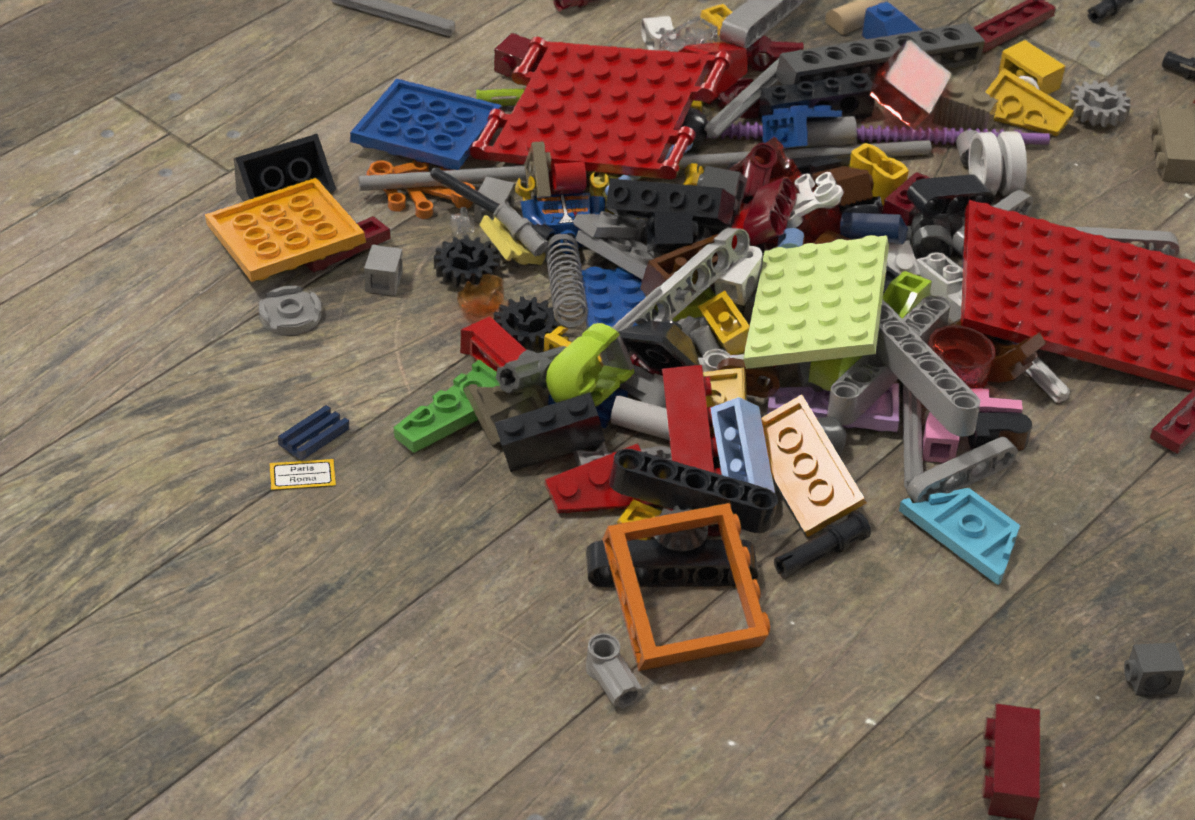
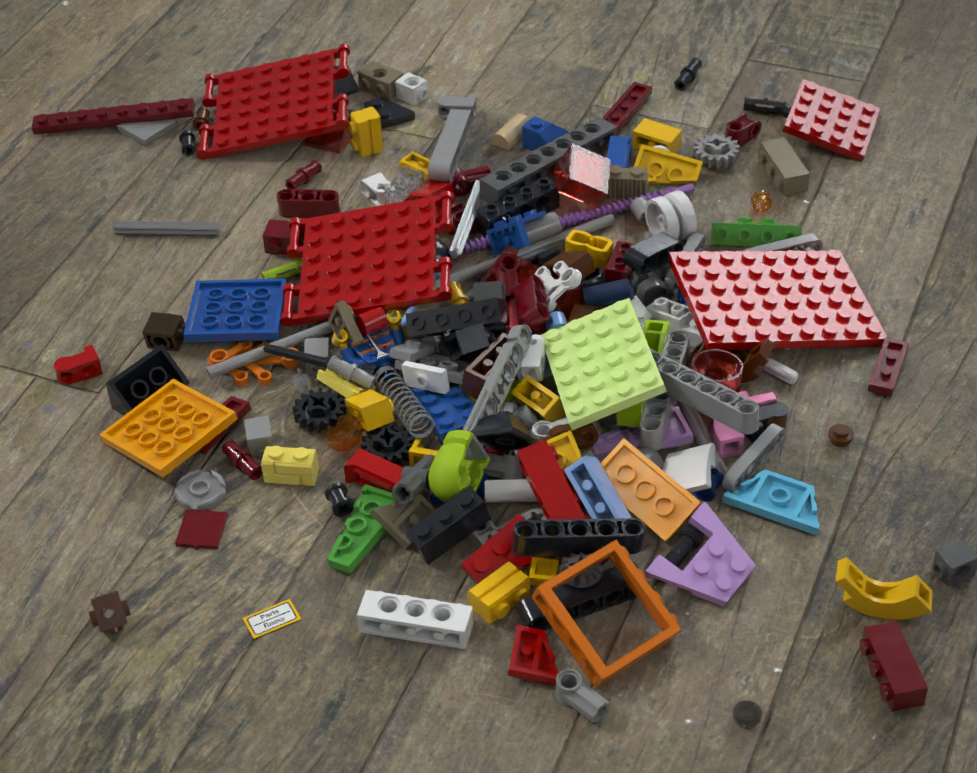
camera: 15 degrees left, 0 degrees up
(114, 396) = (101, 605): none -> reddish brown brick
(218, 135) = (78, 367): none -> red leg
(271, 353) = (201, 529): none -> dark red piece
(309, 430) = (261, 582): dark blue tile -> none
(332, 123) = (164, 330): none -> dark brown head
(352, 290) = (242, 459): none -> dark red pin
(402, 312) = (290, 465): none -> light yellow brick
(441, 362) = (338, 497): none -> black bush
(463, 525) = (415, 619): none -> white brick
(524, 277) = (371, 409): none -> yellow brick
(567, 26) = (307, 202): none -> dark red beam
(572, 526) = (499, 592): none -> yellow brick
(577, 608) = (532, 657): none -> red wing
(604, 259) = (425, 377): none -> white plate
(804, 758) = (747, 714): none -> clear smoke plate
(848, 582) = (715, 570): none -> lavender wing
(874, 456) = (692, 467): none -> white slope
(889, 485) = (716, 481): none -> clear blue bush
(975, 71) = (619, 151): none -> blue window
(1044, 684) = (883, 599): none -> yellow arch
(1087, 478) = (840, 435): none -> reddish brown plate
(1092, 210) = (751, 233): none -> bright green bracket
(1126, 170) = (761, 207): none -> clear orange bush
(1146, 88) = (743, 129): none -> dark red piece

